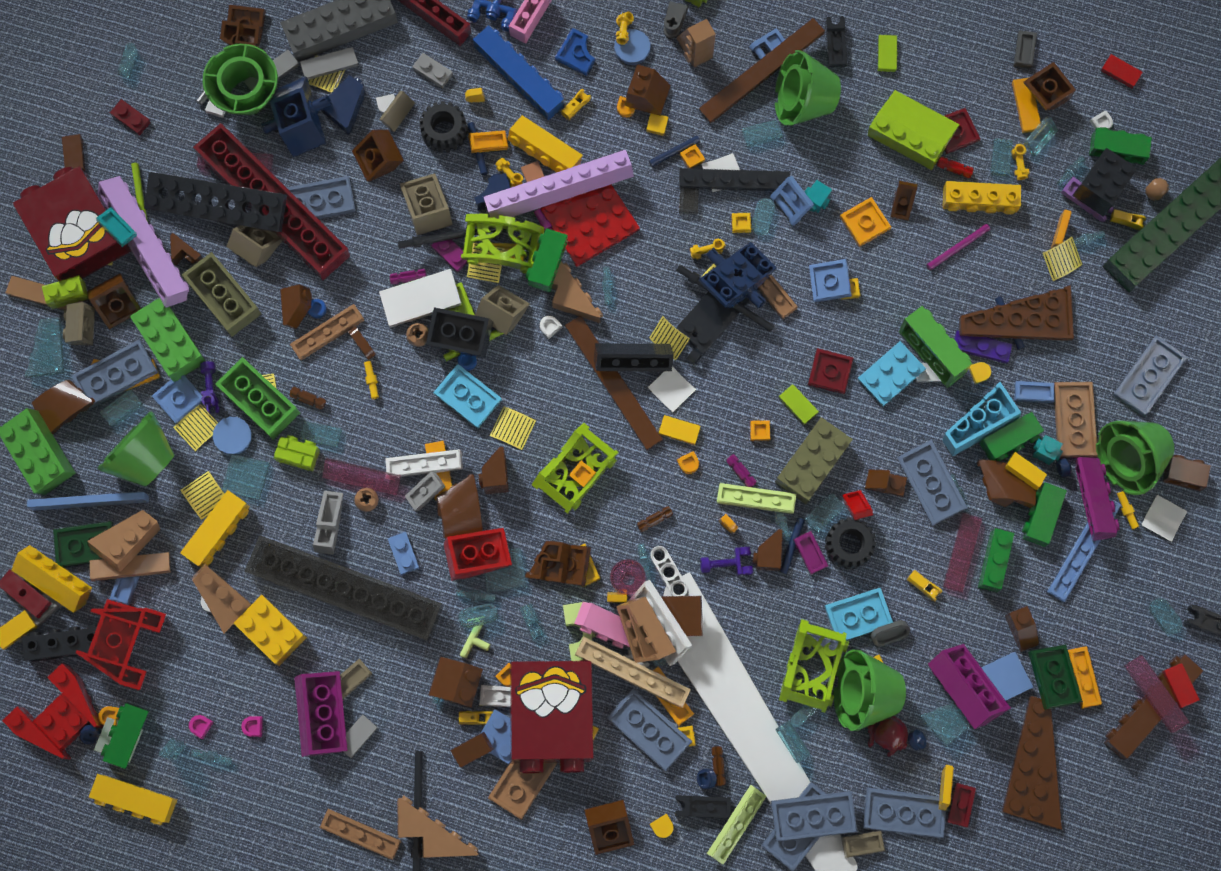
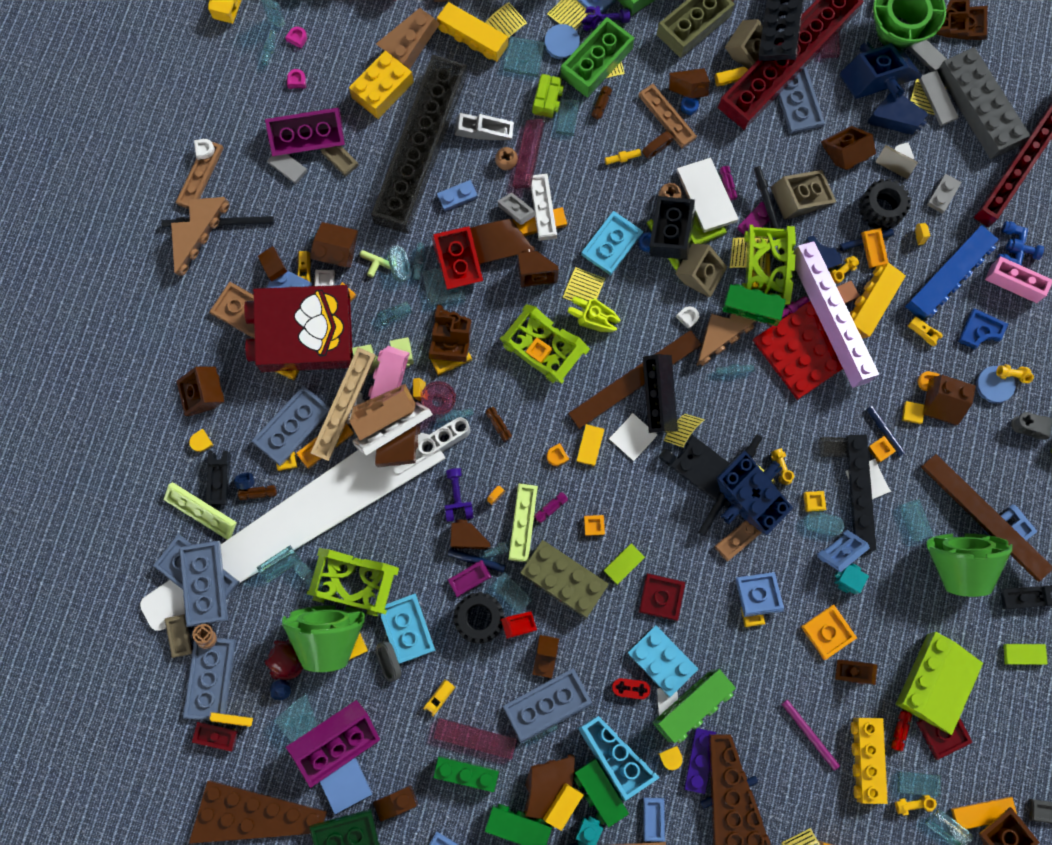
camera: 85 degrees right, 0 degrees up
(288, 264) = (729, 76): none -> yellow bar
(332, 827) = (203, 148): none -> white tile
(546, 417) = (594, 315): none -> neon yellow hinge
(698, 43) = (1007, 446): medium nougat wedge -> none
(869, 814) = (206, 640): none -> medium nougat wheel
(921, 405) = (629, 693): none -> red beam

